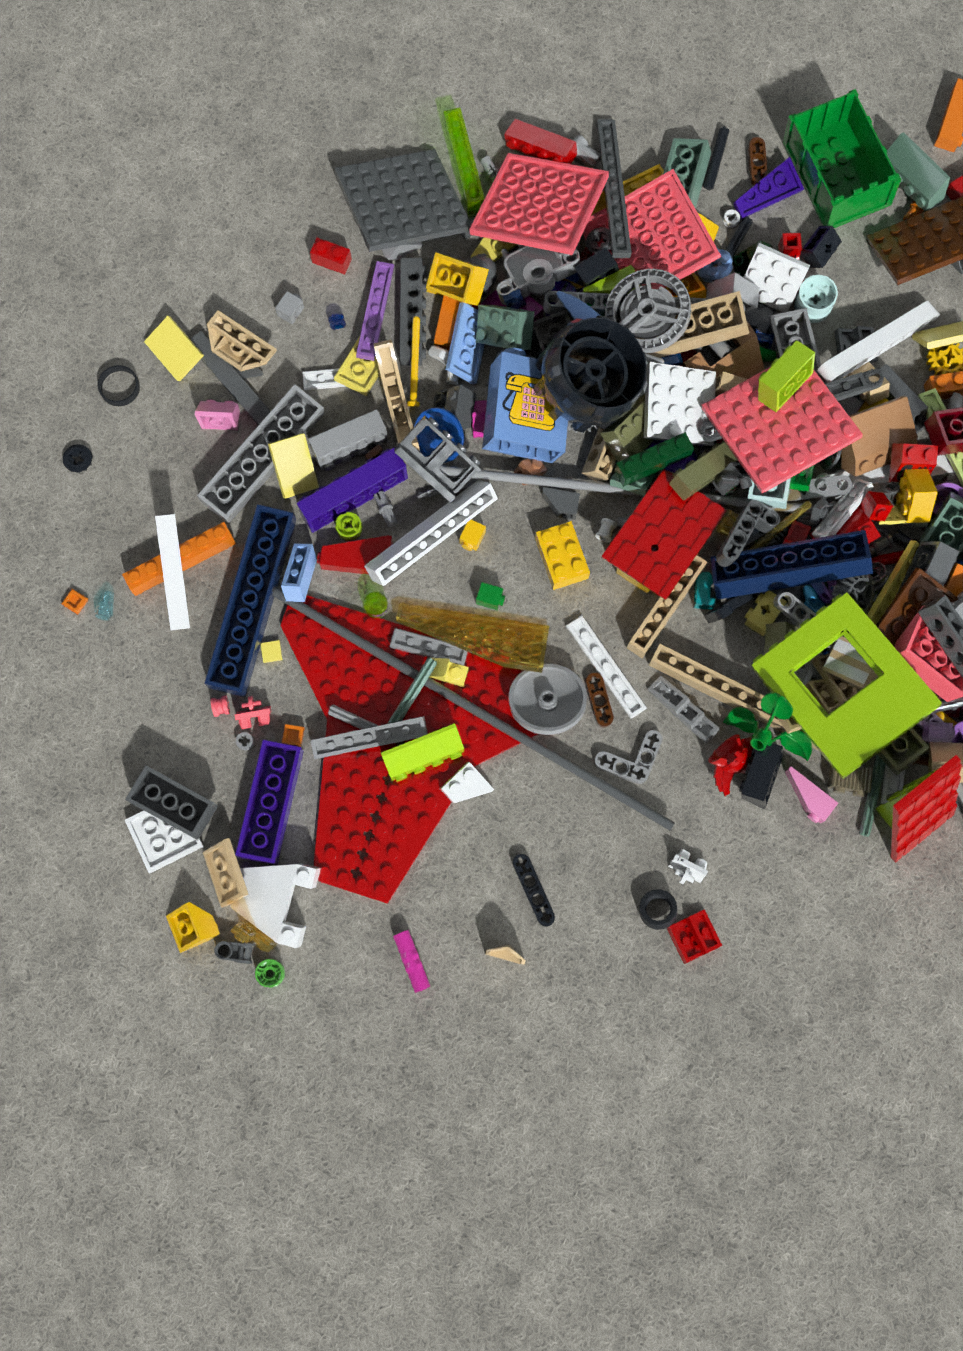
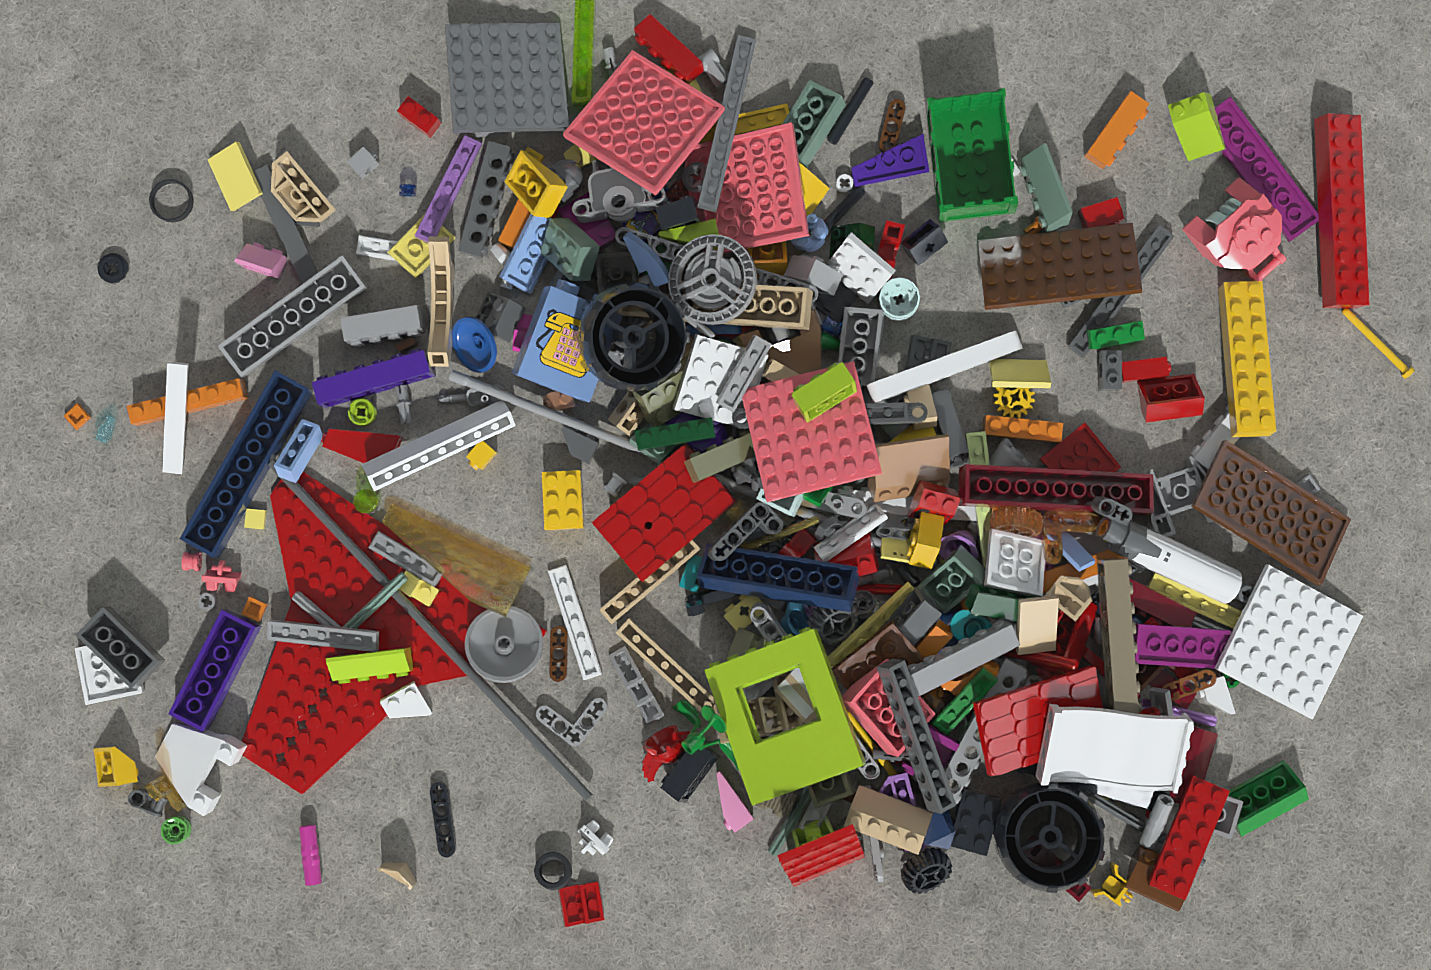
camera: 20 degrees right, 10 degrees up
(225, 873) = (156, 726): tan tile -> none
(293, 465) = (321, 338): light yellow tile -> none
(414, 363) = (461, 298): yellow bar -> none
(429, 466) = (452, 380): window -> none
(490, 596) = (481, 522): green brick -> none
(514, 299) = (588, 223): dark blue plate -> none
(701, 388) = (743, 373): none -> light grey plate
(876, 506) = (882, 540): red brick -> none
(938, 732) = (869, 779): clear purple brick -> none

